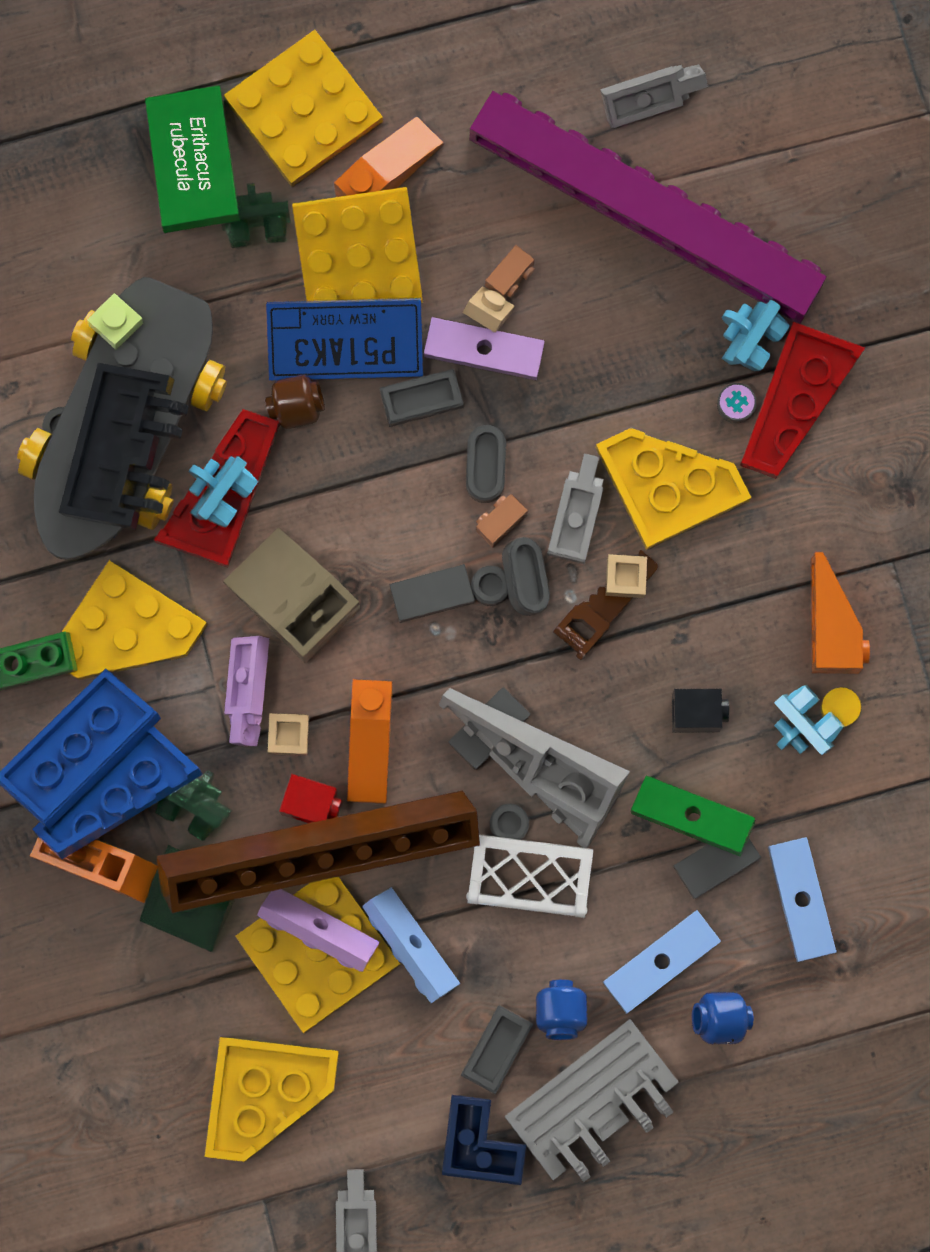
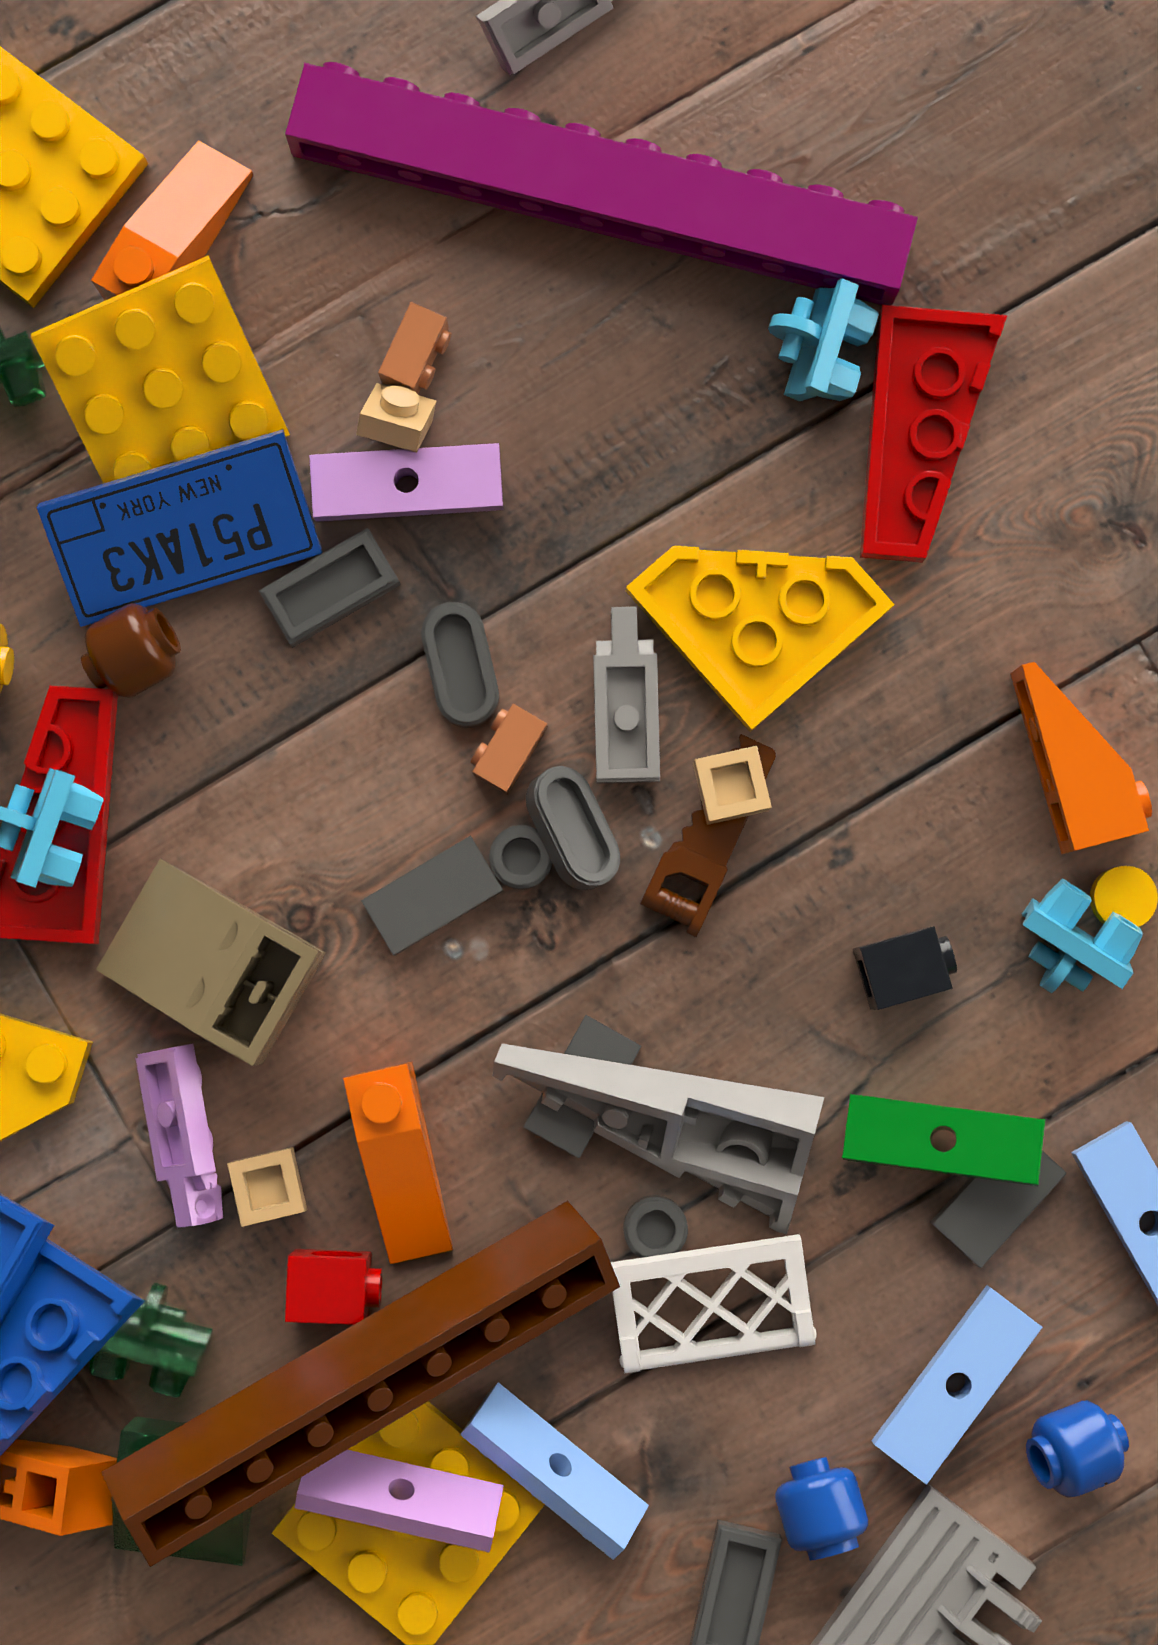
camera: 15 degrees left, 5 degrees up
(736, 403) = (827, 459): tile -> none

